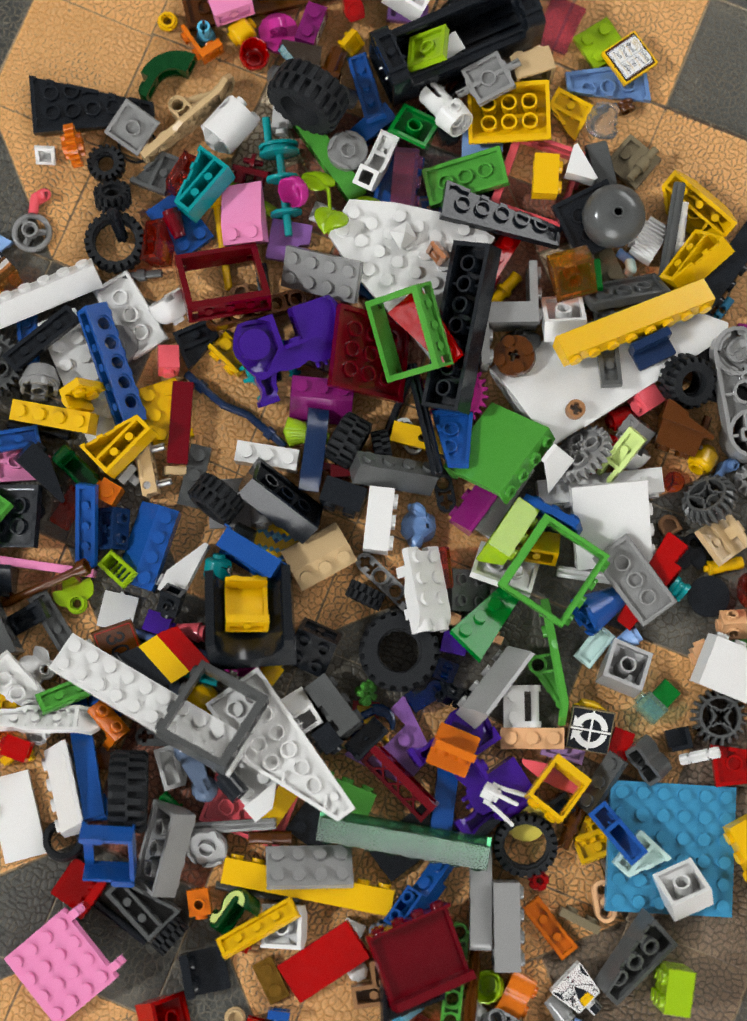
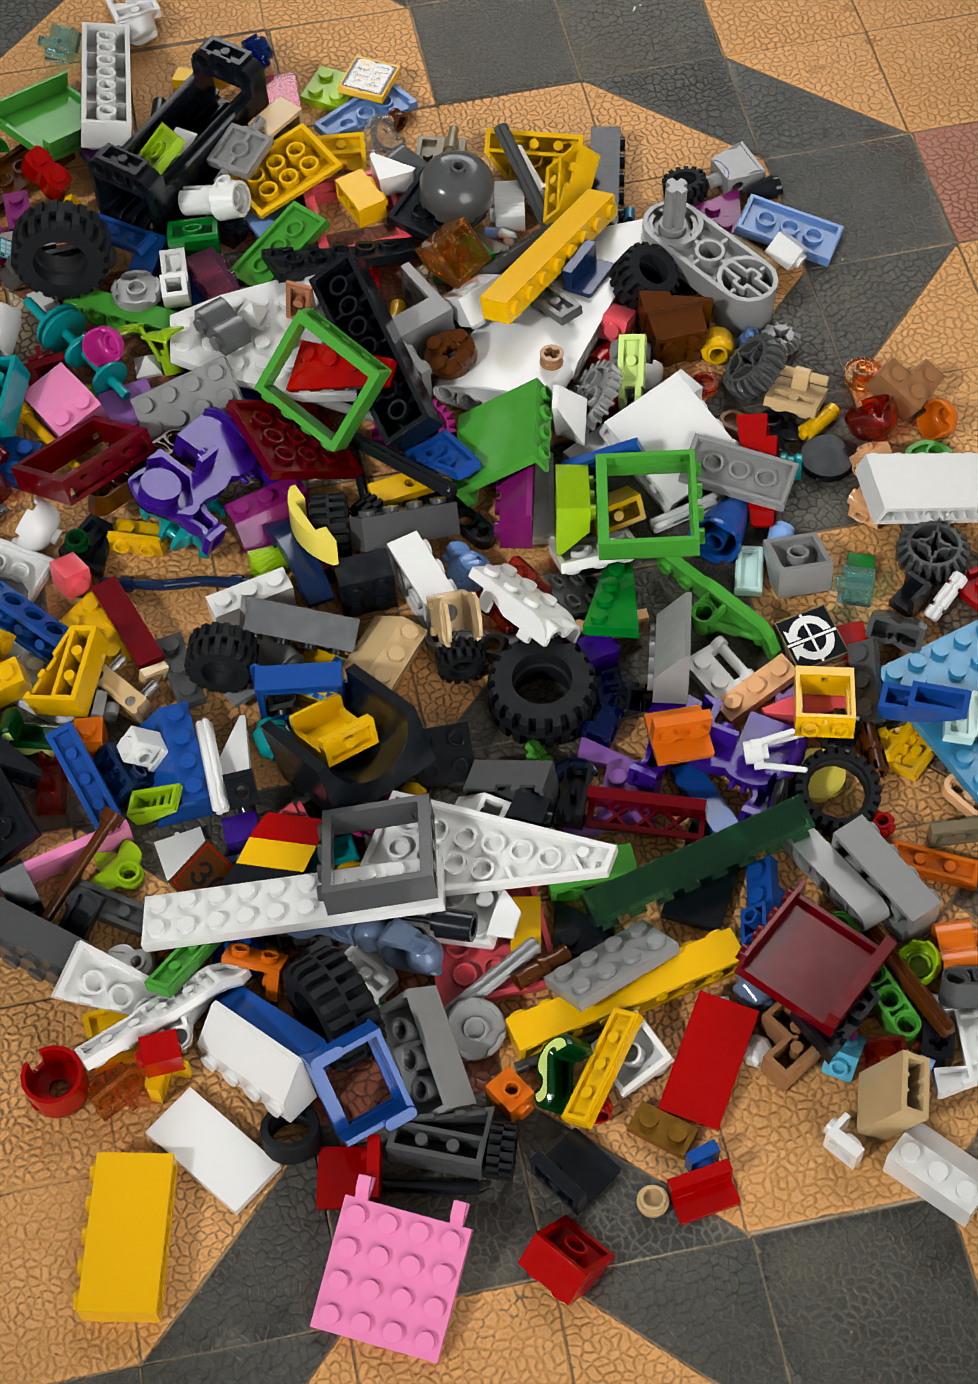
camera: 30 degrees left, 25 degrees down
(132, 527) = (142, 748): none -> white brick
(164, 569) = (212, 766): none -> white axle
(186, 333) = (74, 536): none -> dark green plate
(326, 459) = (316, 542): none -> light yellow slope
(374, 237) = (222, 326): none -> dark grey brick
(383, 569) = (466, 615): none -> tan piece

